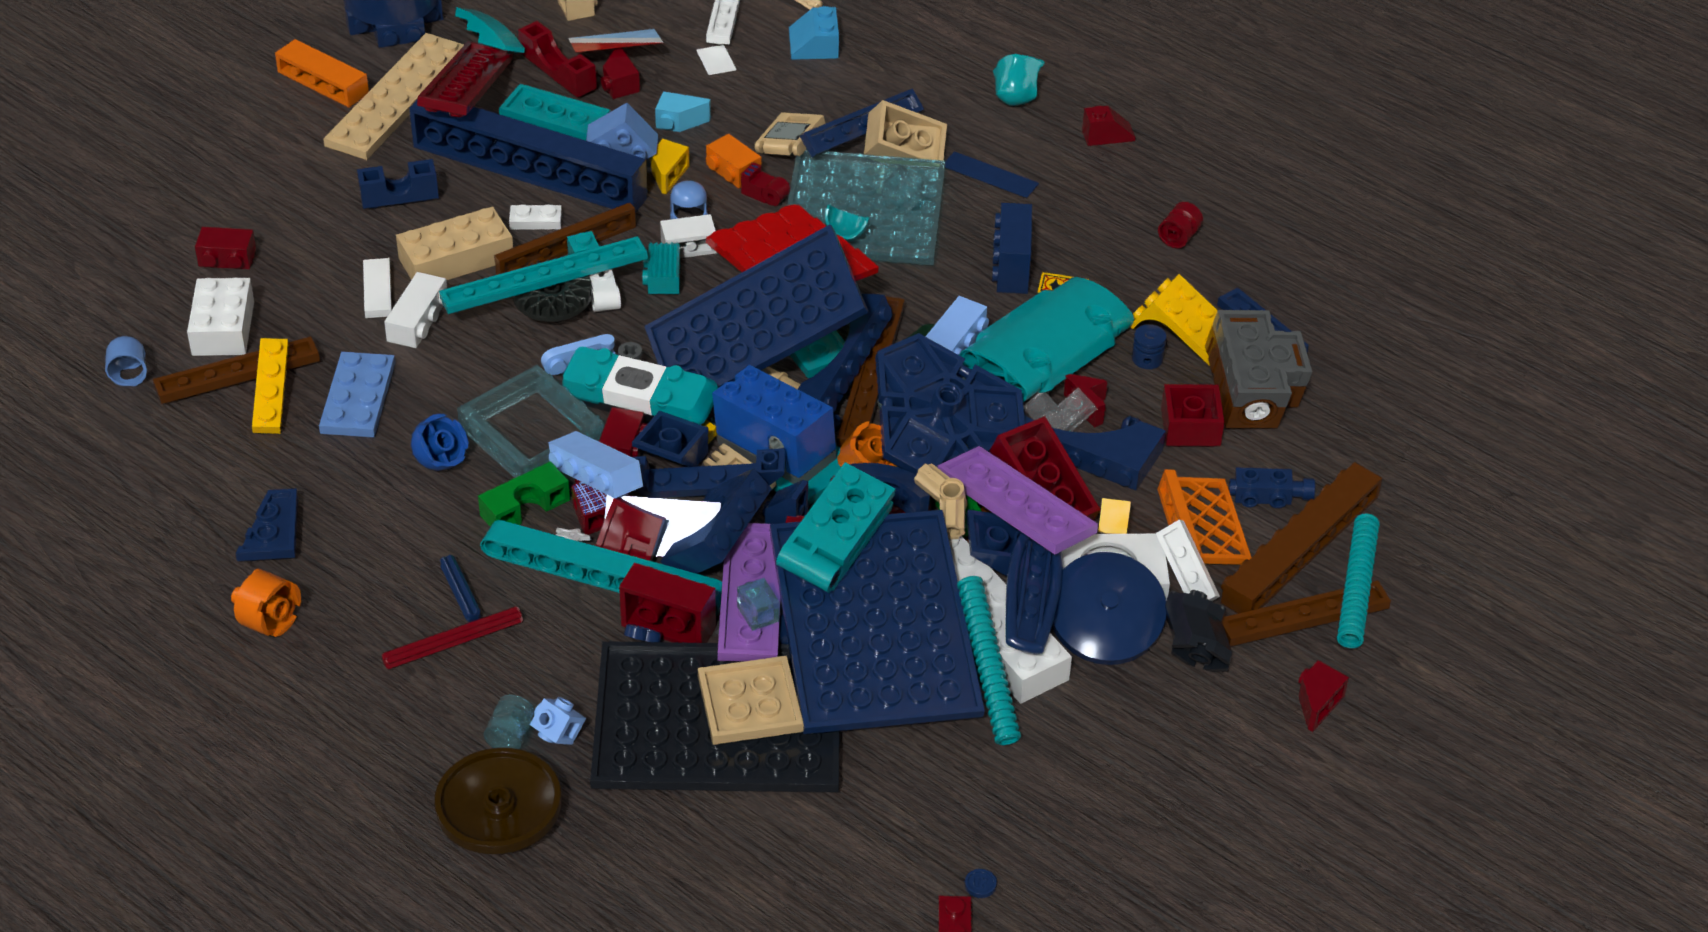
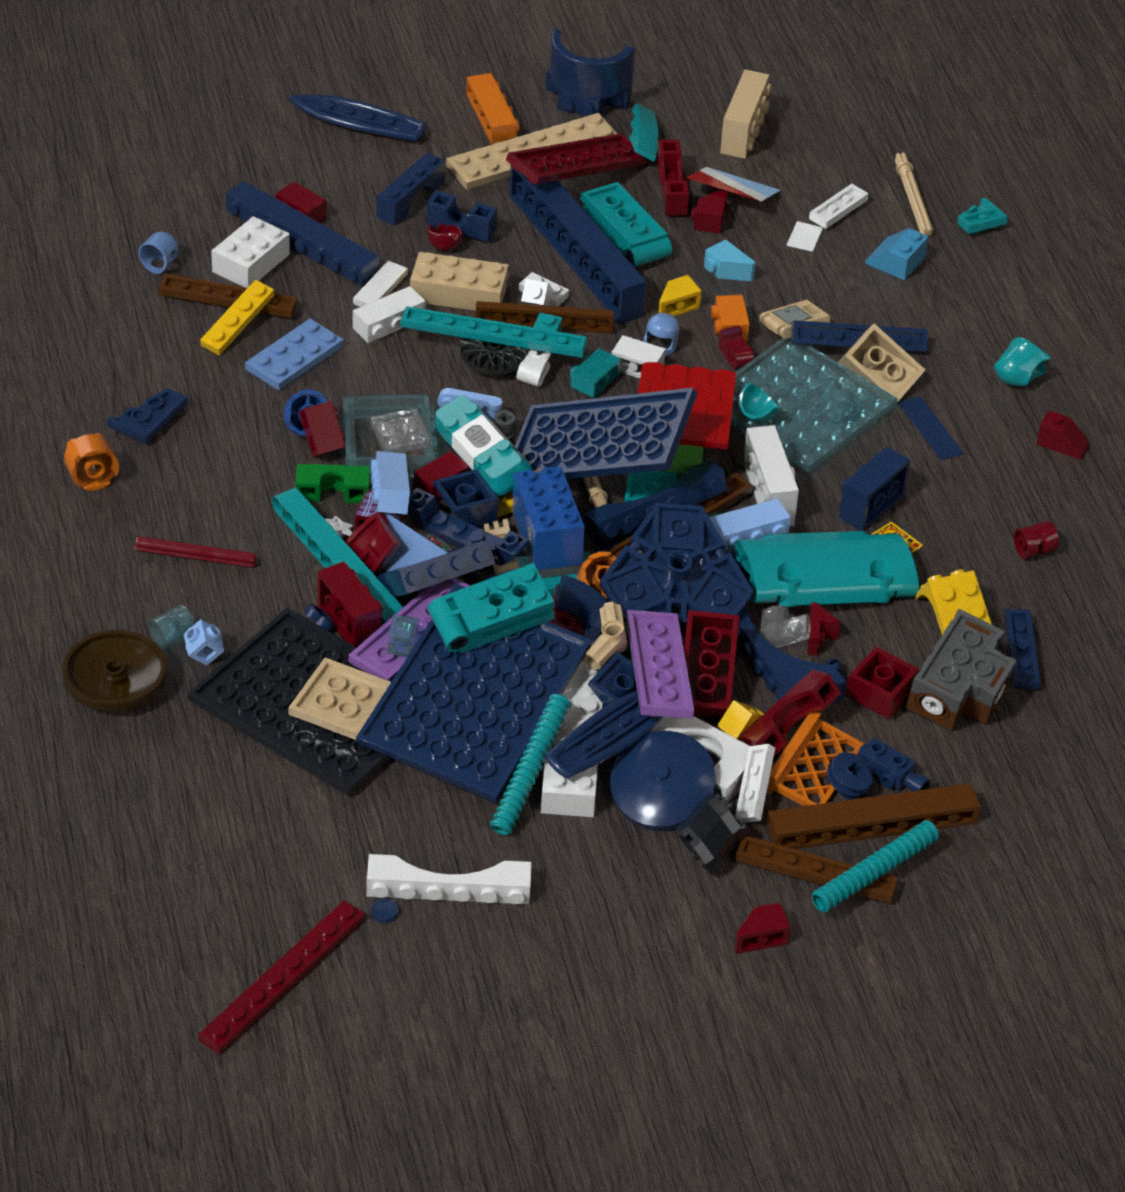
camera: 35 degrees right, 0 degrees up
(198, 137) = (360, 116): none -> dark blue piece
(268, 272) = (305, 233): none -> dark blue brick
(317, 191) = (395, 200): none -> dark blue arch
(398, 211) = (445, 237): none -> dark red hair
(460, 588) = (232, 521): dark blue axle -> none
(469, 449) = (322, 428): none -> dark red brick
(542, 221) = (537, 293): none -> white brick
(551, 412) = (400, 431): none -> clear plate
(624, 131) = (653, 258): medium blue brick -> none
(916, 277) = (769, 469): none -> white brick
(965, 844) = (395, 878): none -> white arch
(1149, 344) = (907, 616): dark blue piece -> none
(1159, 455) = (809, 695): none -> dark red arch
(1250, 512) = (849, 775): none -> dark blue piece

